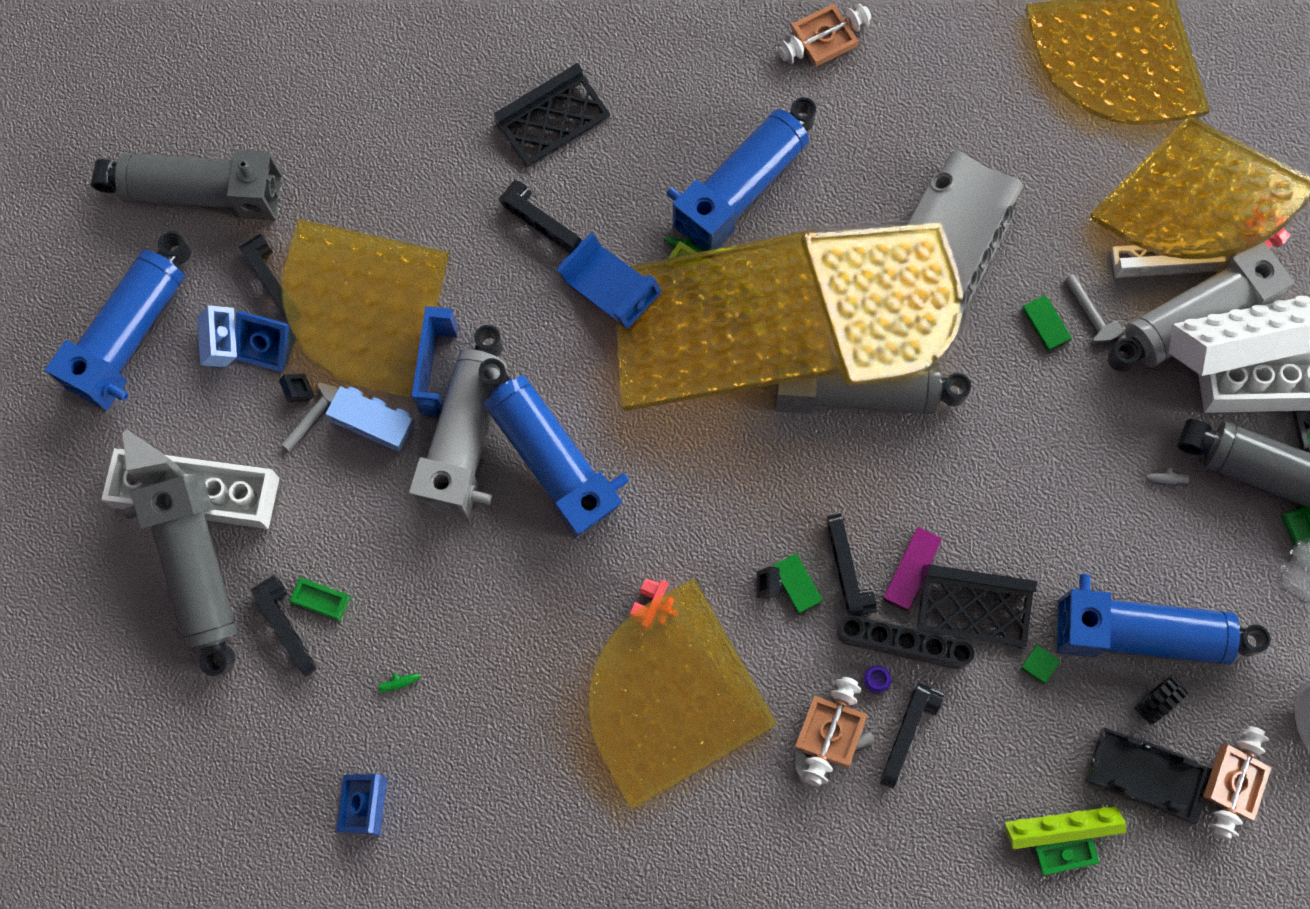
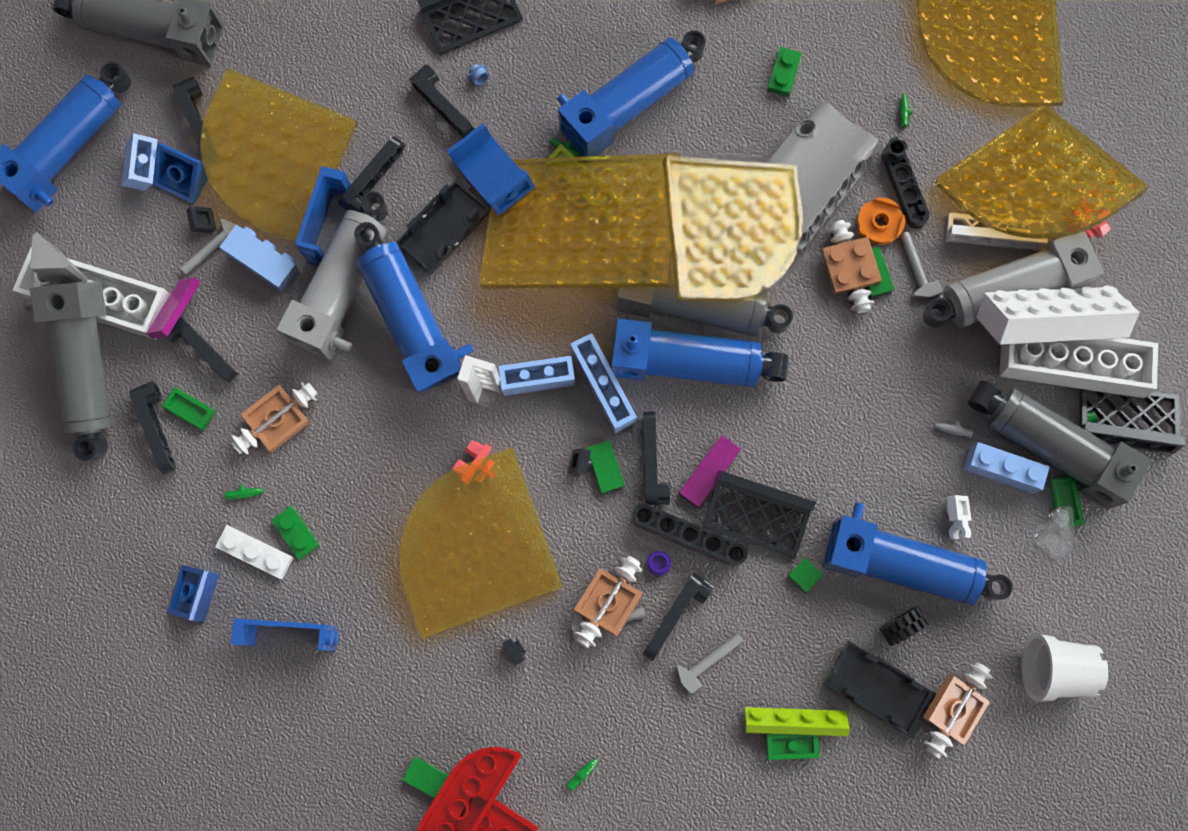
camera: 10 degrees right, 5 degrees up
(284, 489) = (173, 308): none -> magenta tile
(290, 509) = (183, 328): none -> black beam
(419, 592) = (274, 418): none -> nougat plate
(423, 746) = (254, 552): none -> white plate
(432, 828) = (245, 632): none -> blue panel
(463, 333) = (372, 174): none -> black beam
(465, 716) = (295, 532): none -> green plate
(567, 350) = (443, 225): none -> black piece
(573, 182) = (478, 74): none -> medium blue plate
(645, 504) = (476, 375): none -> white fence
(703, 496) = (537, 375): none -> light blue brick
(738, 804) = (515, 650): none -> black plate
(778, 492) = (603, 383): none -> light blue brick
(866, 447) = (692, 357): none -> blue piece
(904, 126) = (784, 71): none -> green plate
(936, 800) = (688, 677): none -> light grey piece
(1020, 320) = (851, 266): none -> nougat plate
(1032, 279) = (892, 216): none -> orange plate
(1042, 147) = (904, 111): none -> green helmet
(1054, 227) = (896, 152): none -> black beam
(1193, 566) = (959, 512): none -> white plate
(1233, 509) = (1006, 468): none -> light blue brick

